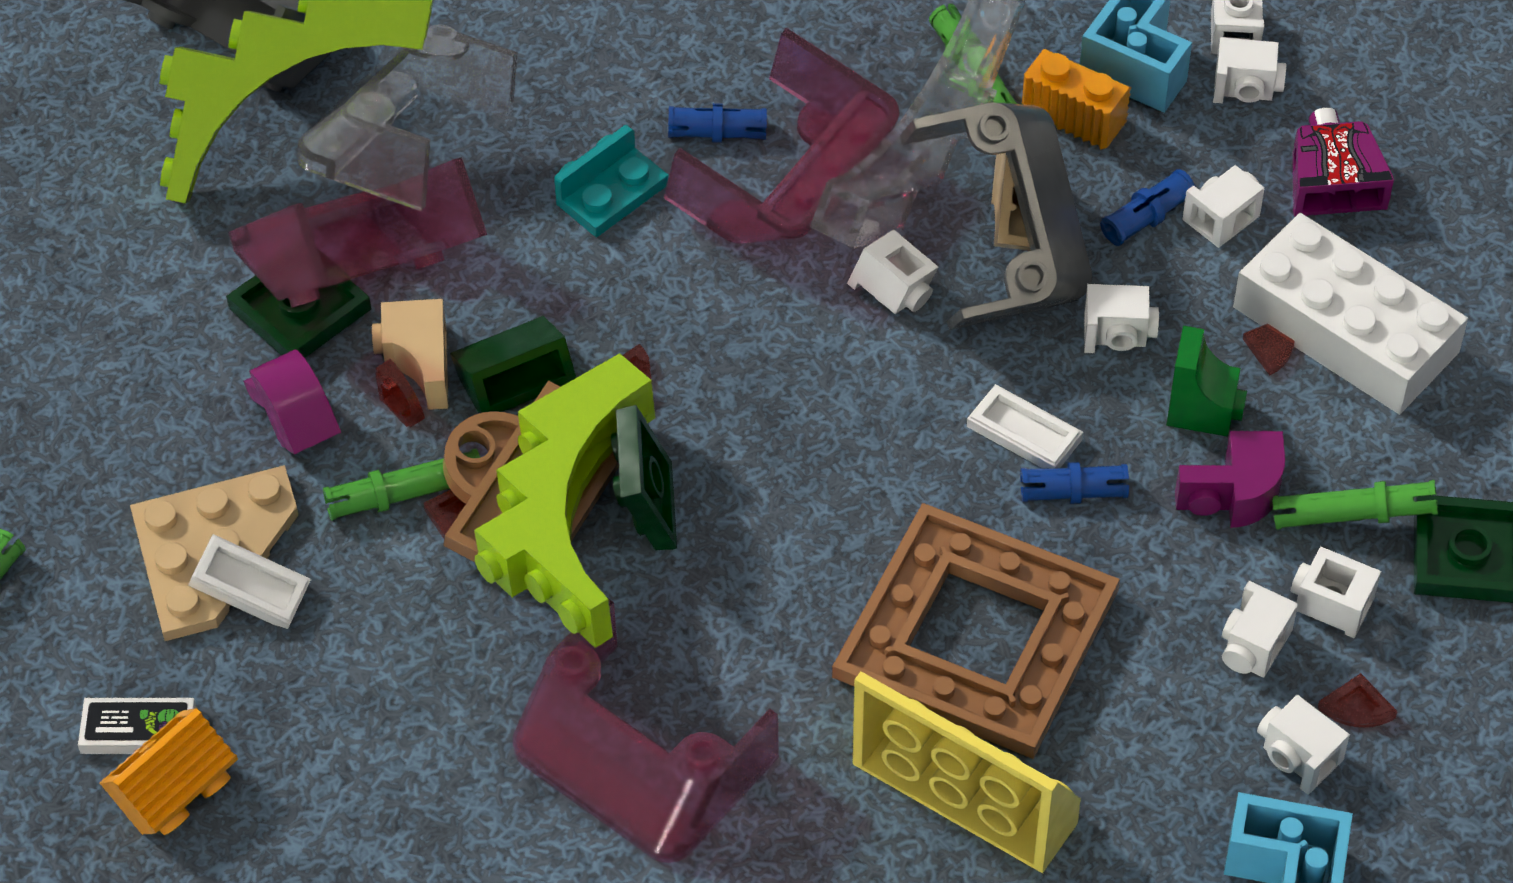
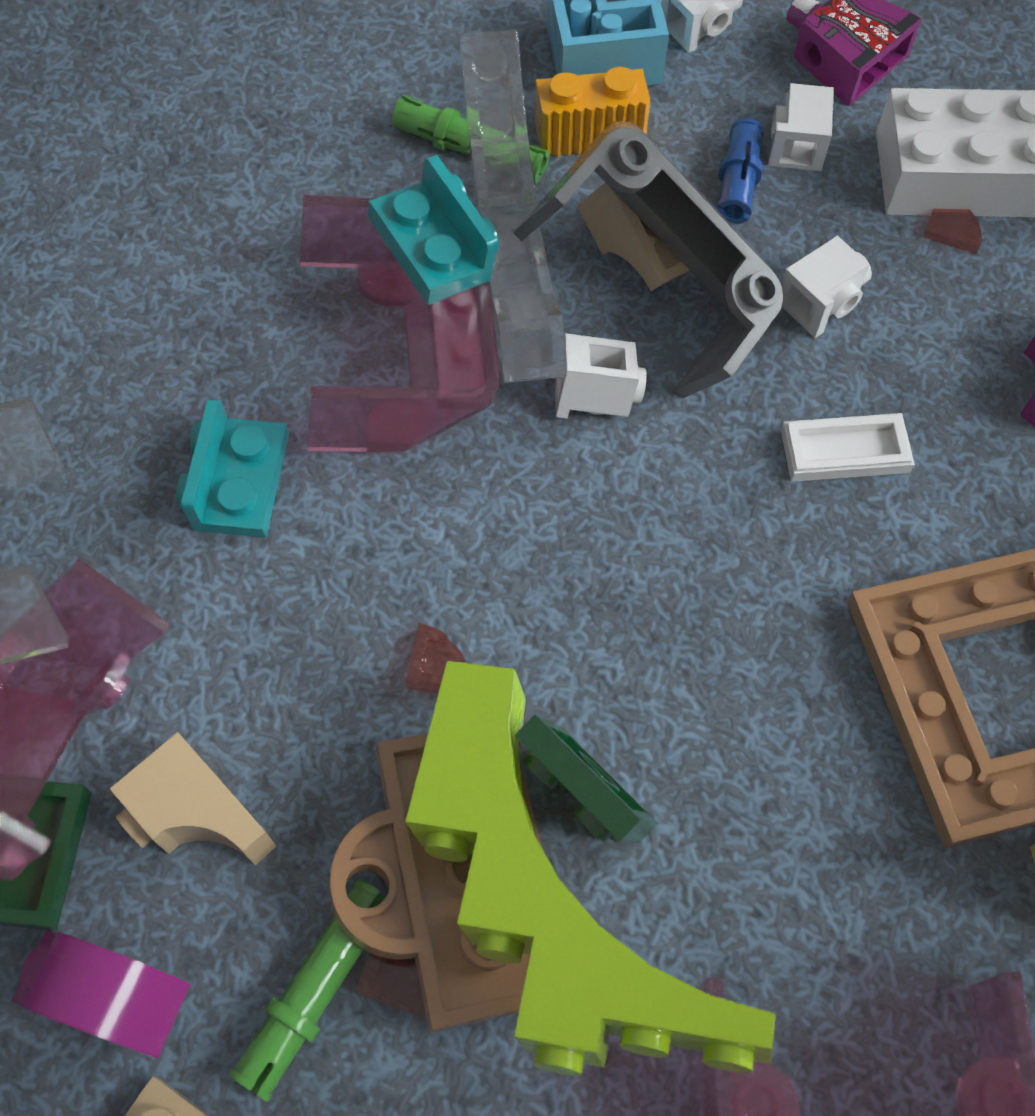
camera: 40 degrees left, 10 degrees up
(395, 391) = (195, 877): clear red tile -> none
(514, 365) = (312, 746): dark green brick -> none
(717, 122) = (285, 340): blue pin -> none
(845, 106) = (436, 233): none -> teal bracket
(1074, 483) = (944, 467): blue pin -> none
(1203, 388) = (966, 299): green arch -> none

